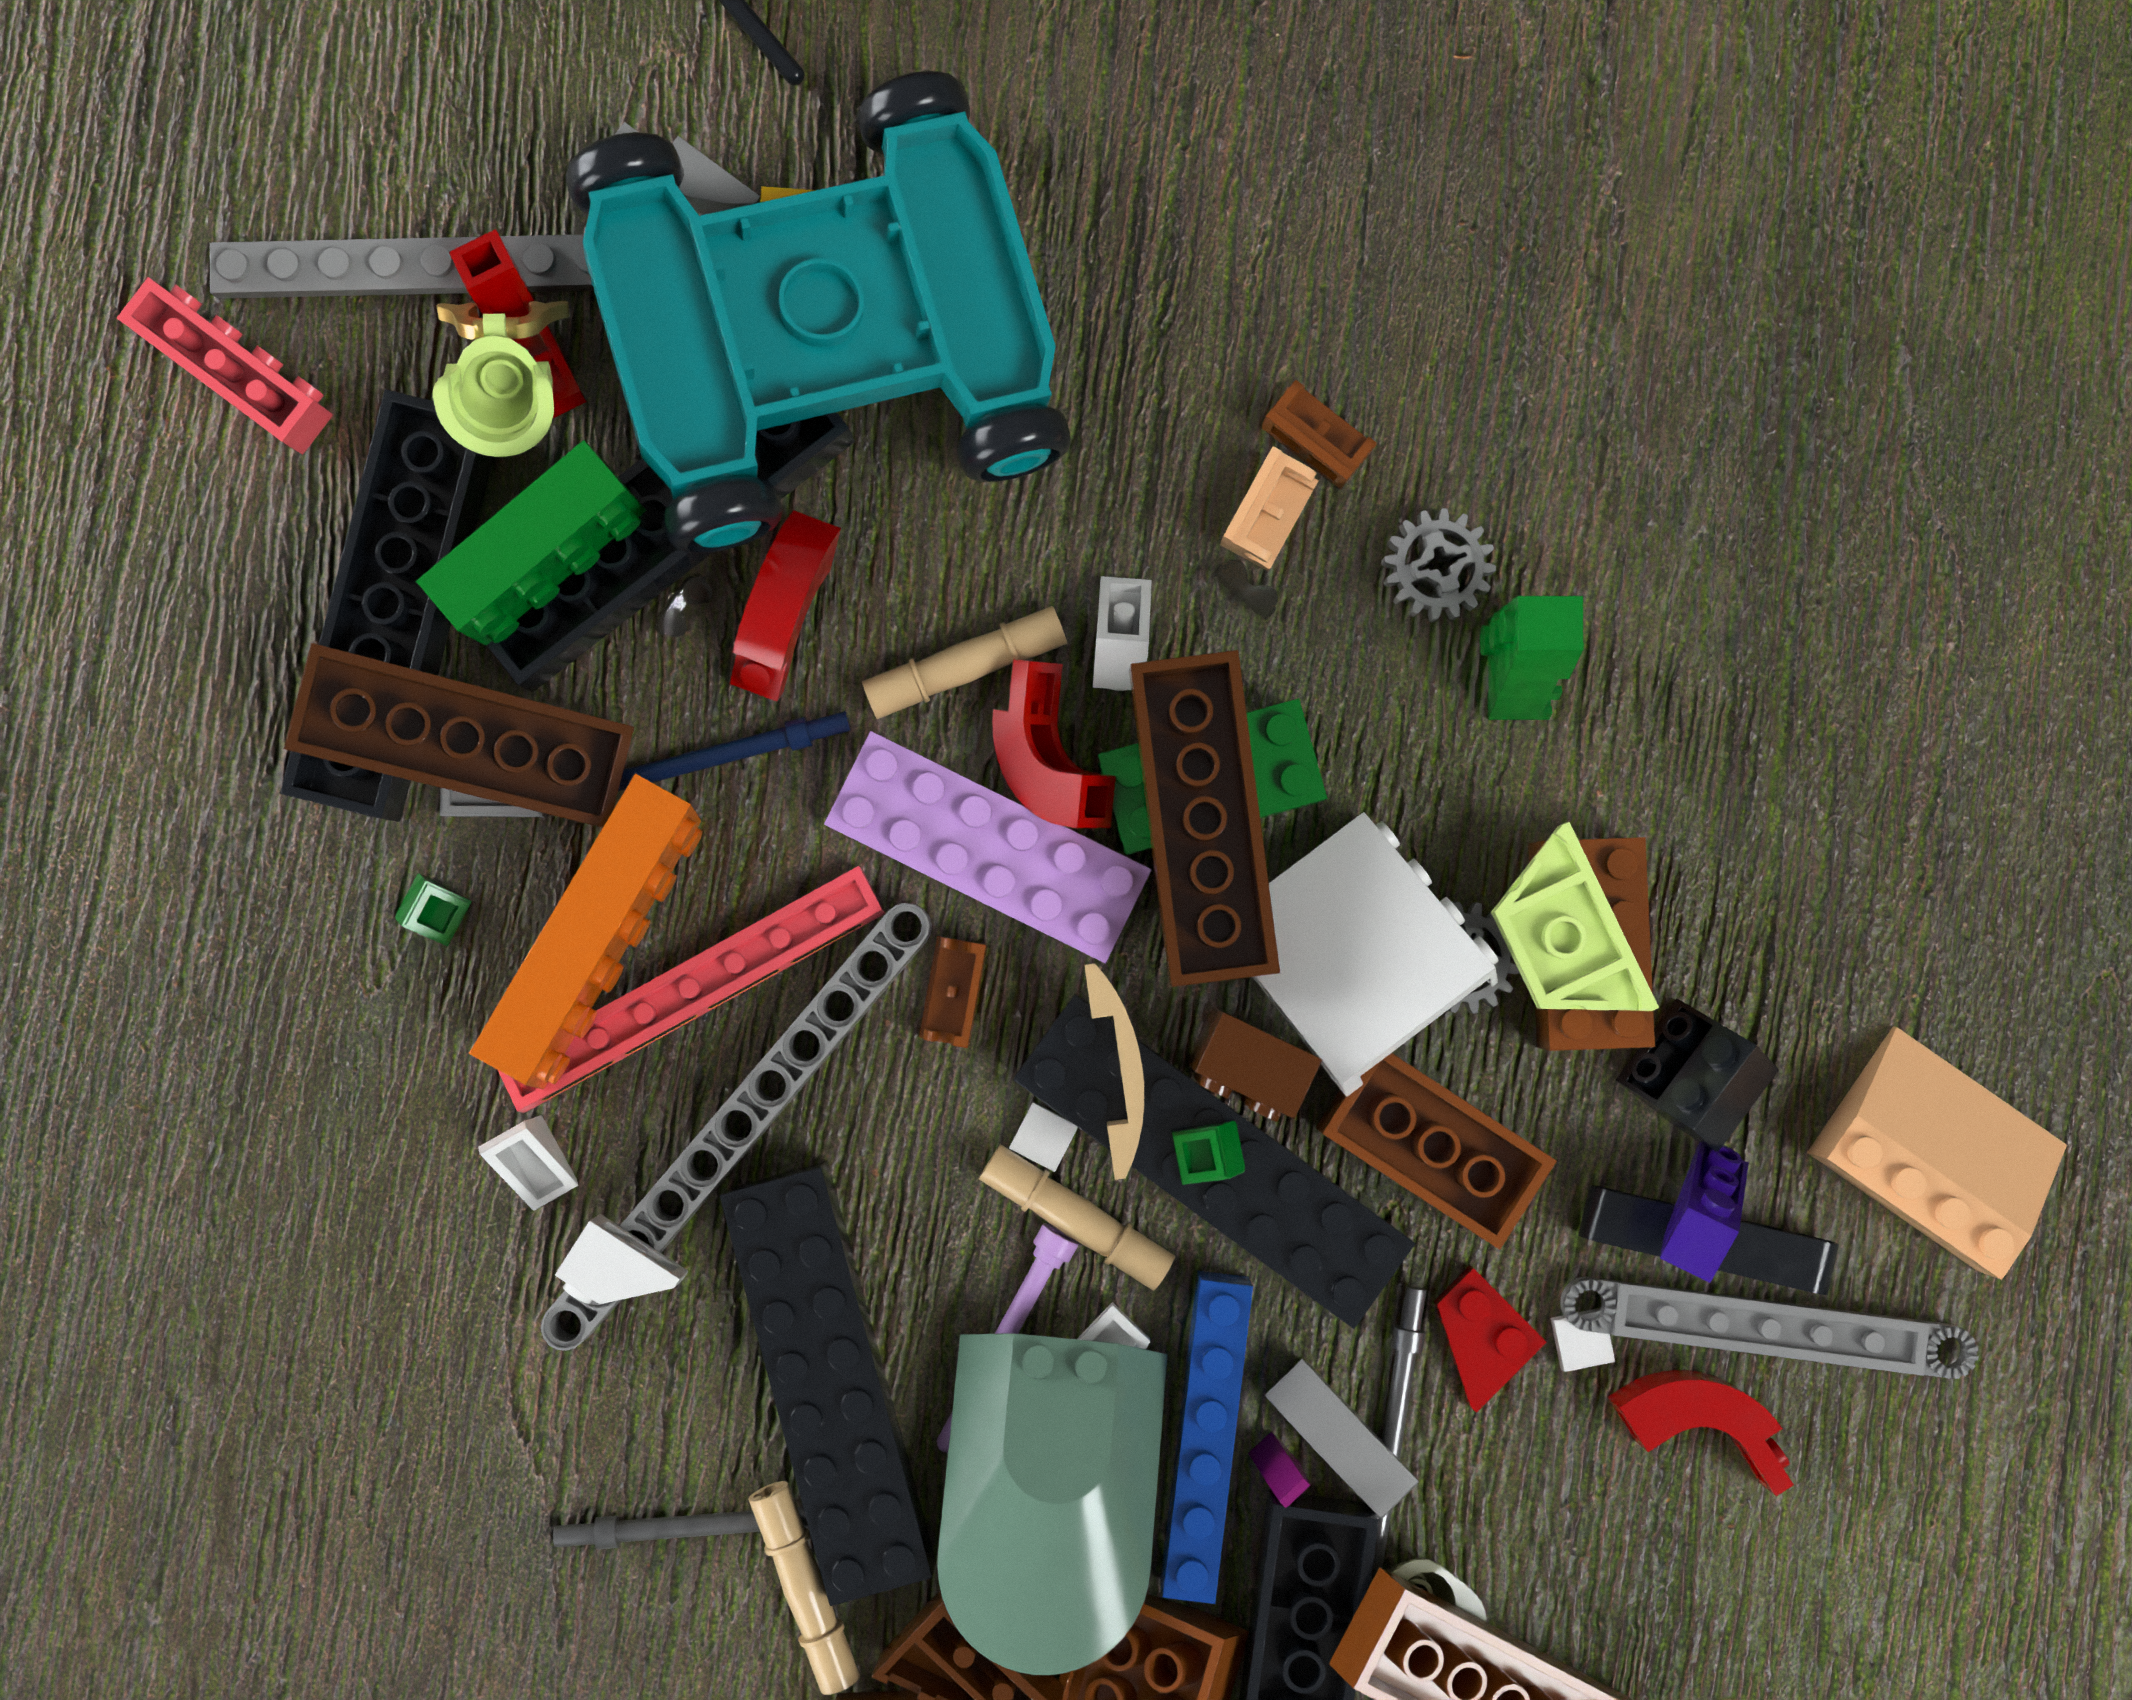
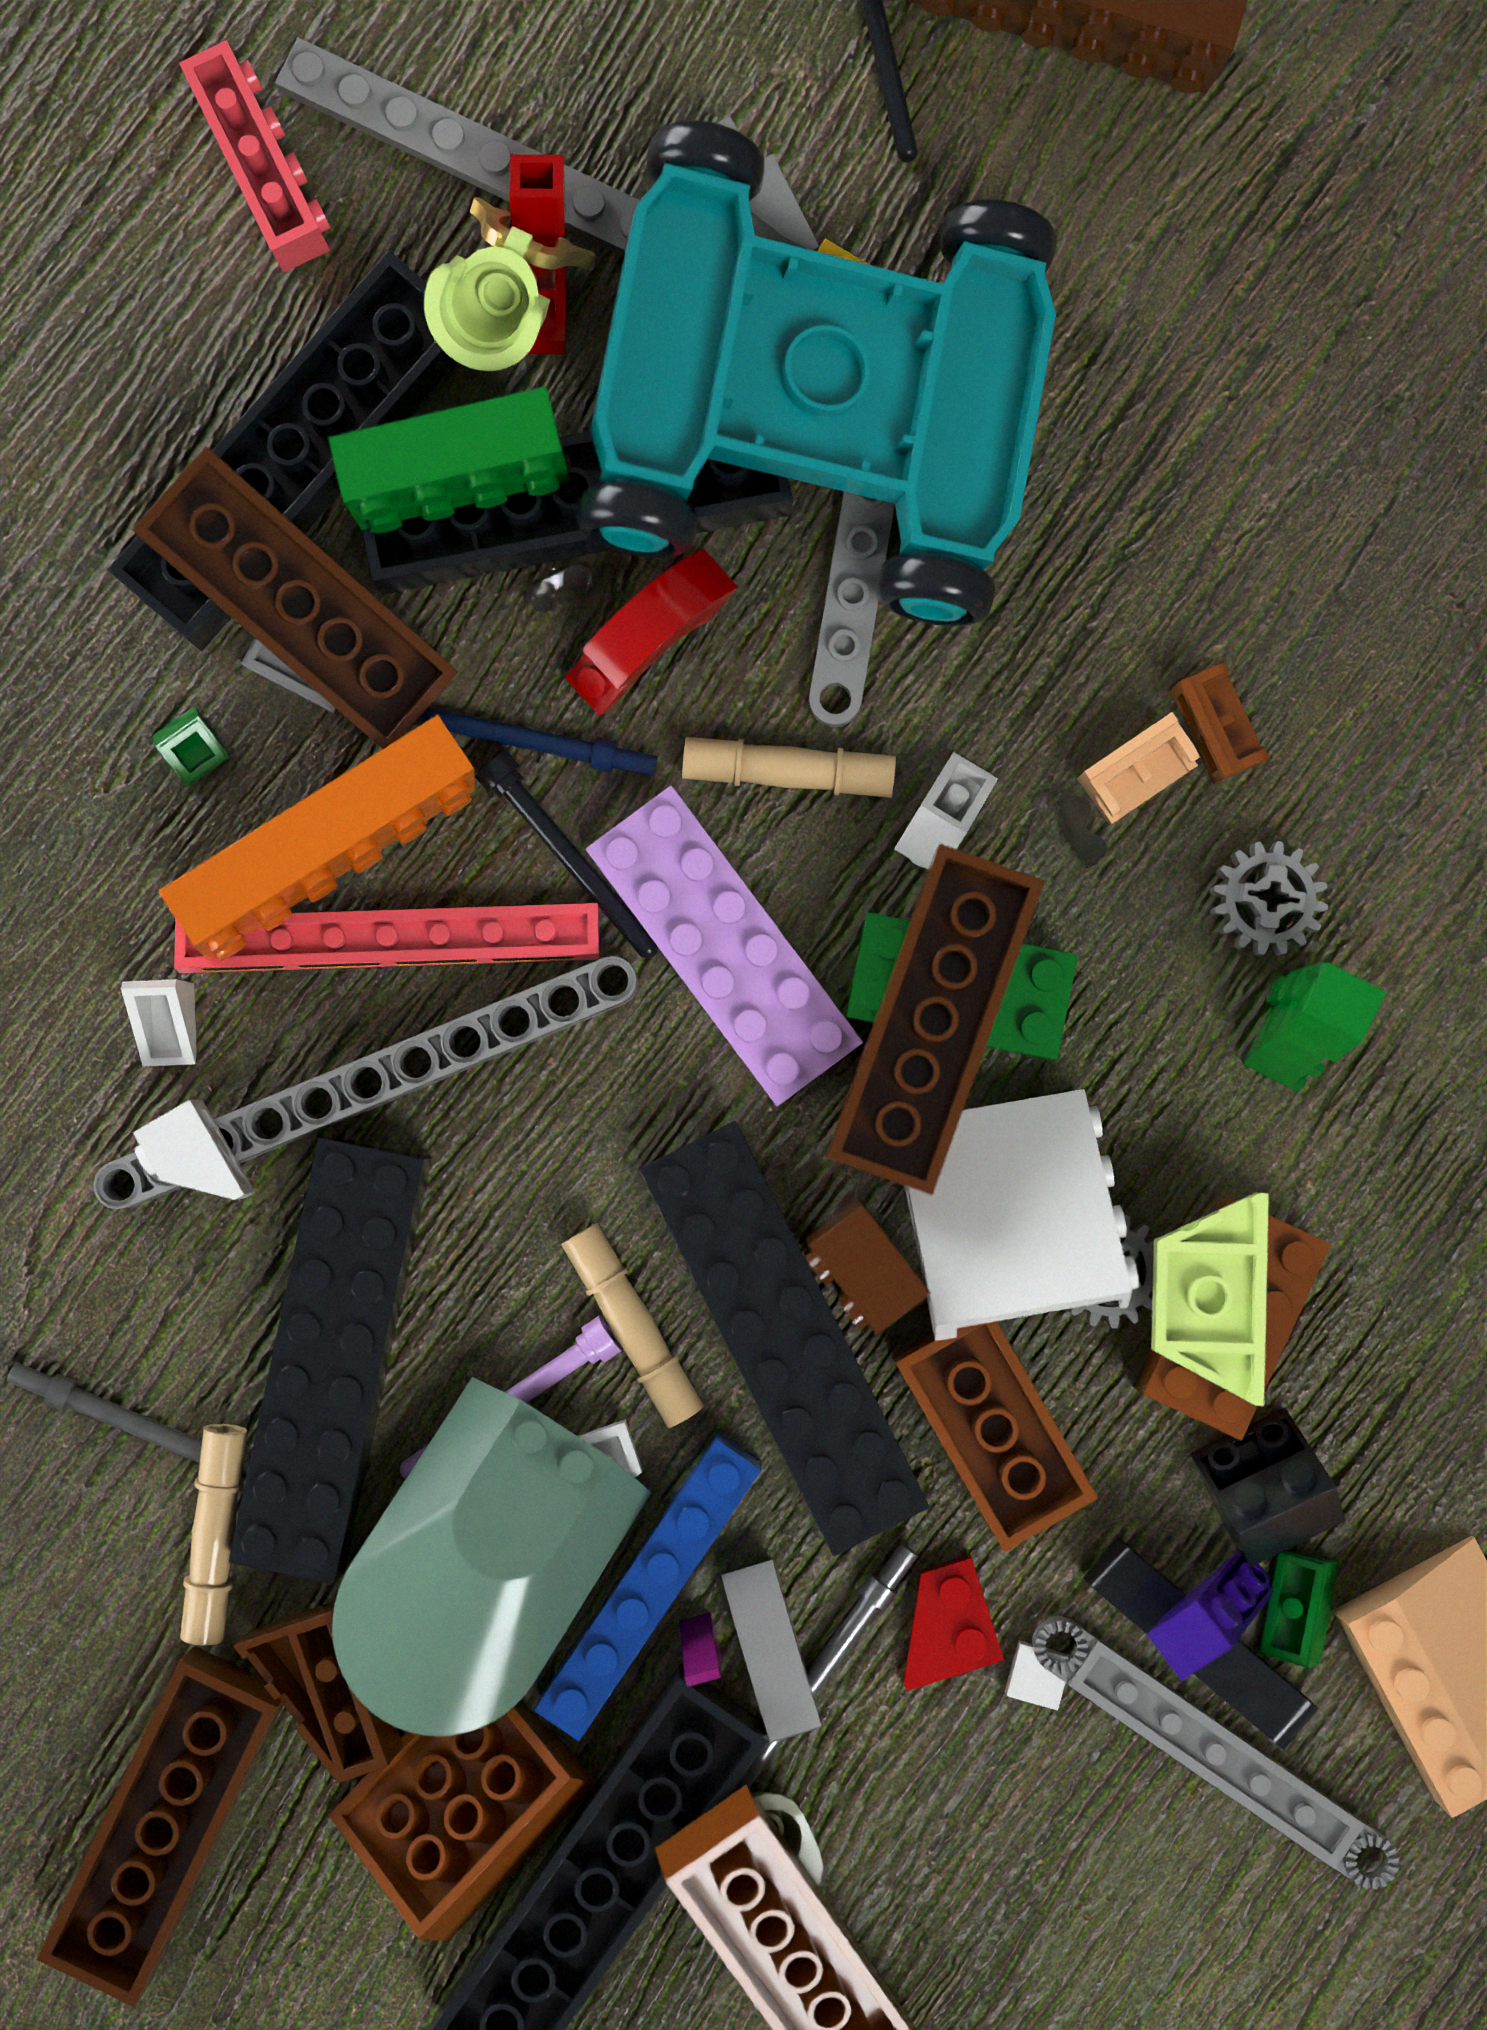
camera: 30 degrees right, 0 degrees up
(722, 799) = (503, 778): none -> black piece
(946, 493) = (851, 604): none -> light grey plate
(953, 991) = (625, 1062): dark orange hinge -> none
(1034, 758) = (808, 887): red arch -> none
(1043, 1136) = (640, 1236): white tile -> none
(1124, 1133) = (716, 1270): tan slope -> none
(1209, 1152) = (783, 1327): green slope -> none
(1680, 1400) = (1095, 1775): red arch -> none
(1777, 1165) = (1299, 1608): none -> green slope

